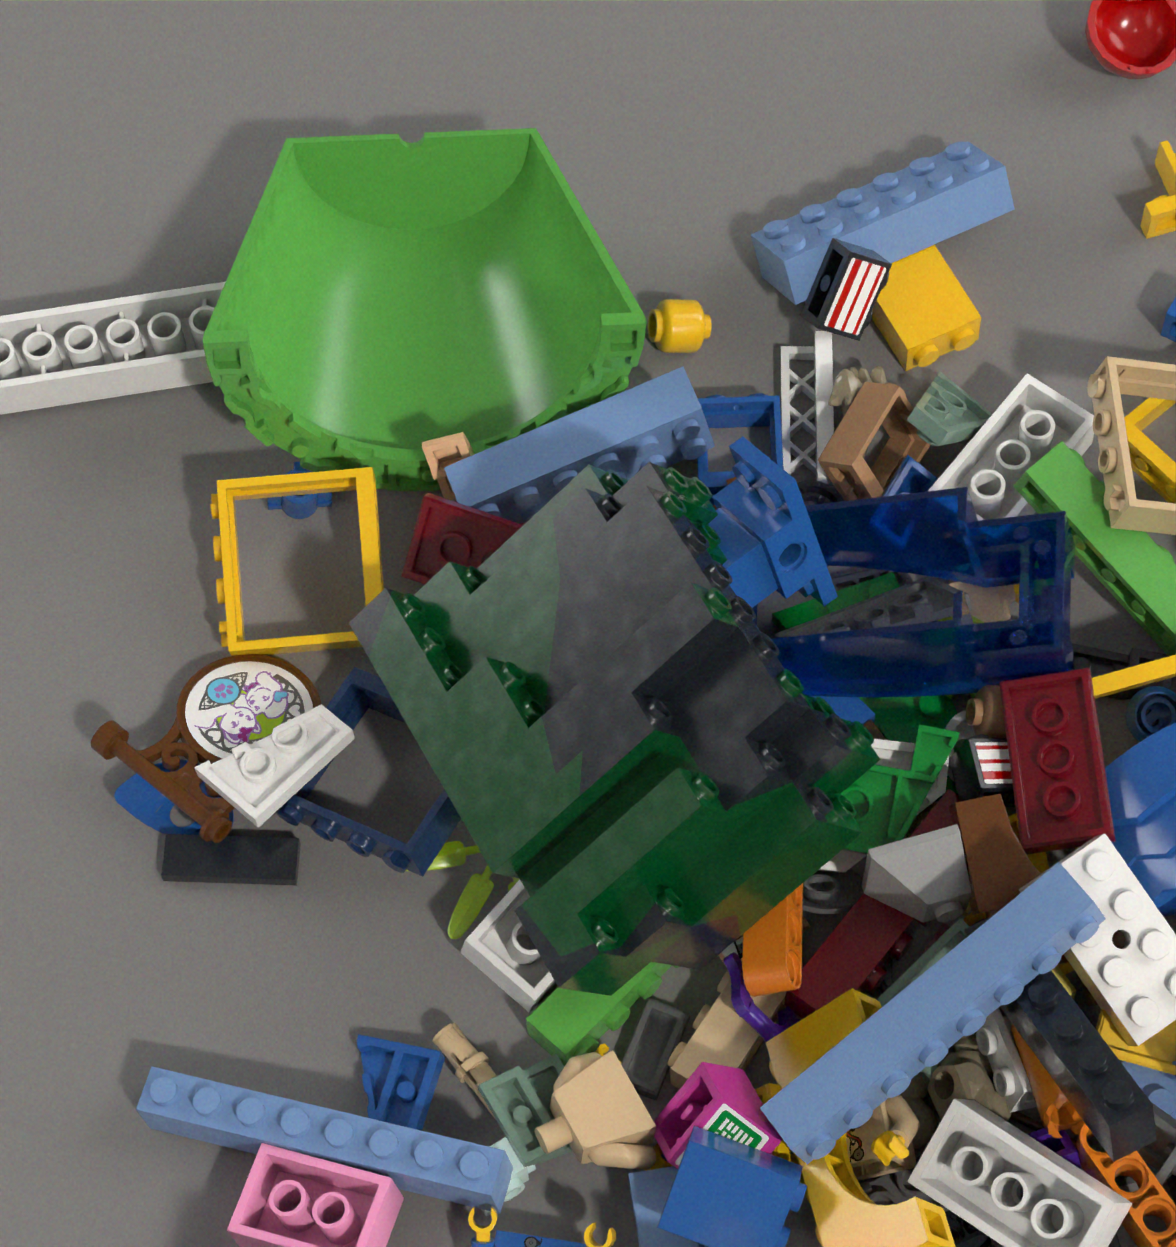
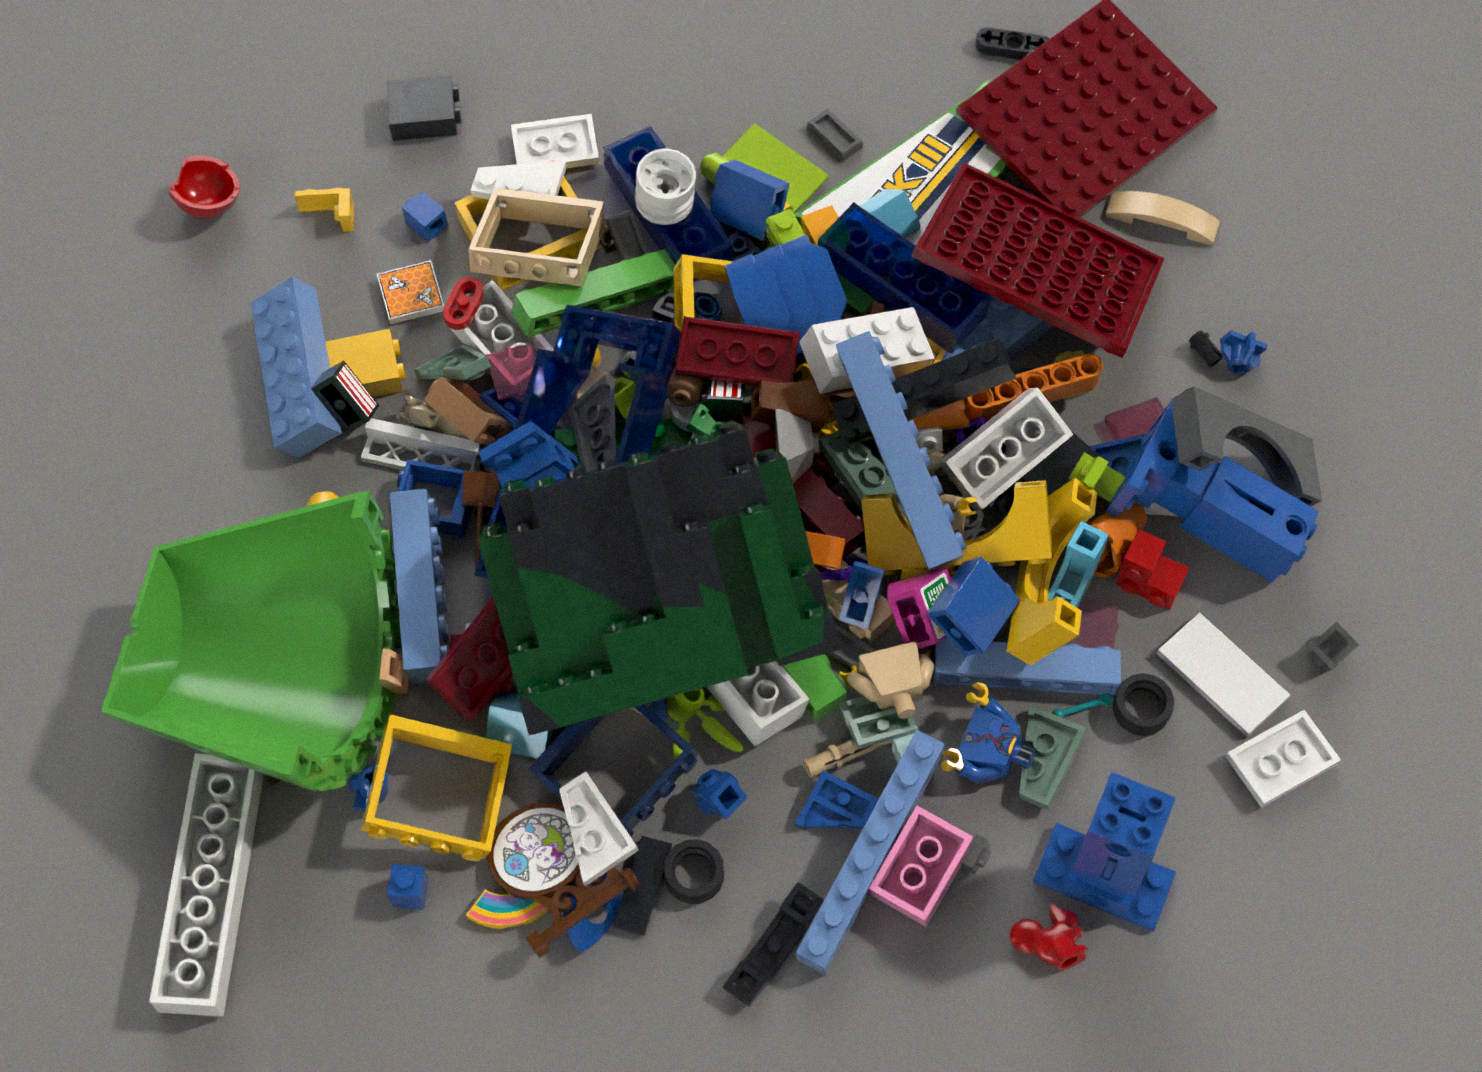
camera: 80 degrees left, 0 degrees up
(159, 690) = (504, 911): none -> tile
(167, 571) = (408, 886): none -> blue brick
(167, 1044) = (774, 945): none -> black slope
(250, 886) = (694, 847): none -> black tyre
(374, 918) = (718, 793): none -> blue brick
(714, 1035) = (861, 595): none -> blue slope
(955, 469) = (512, 370): none -> clear pink piece
(1037, 387) = (462, 305): none -> red plate
(1065, 334) = (410, 292): none -> tile

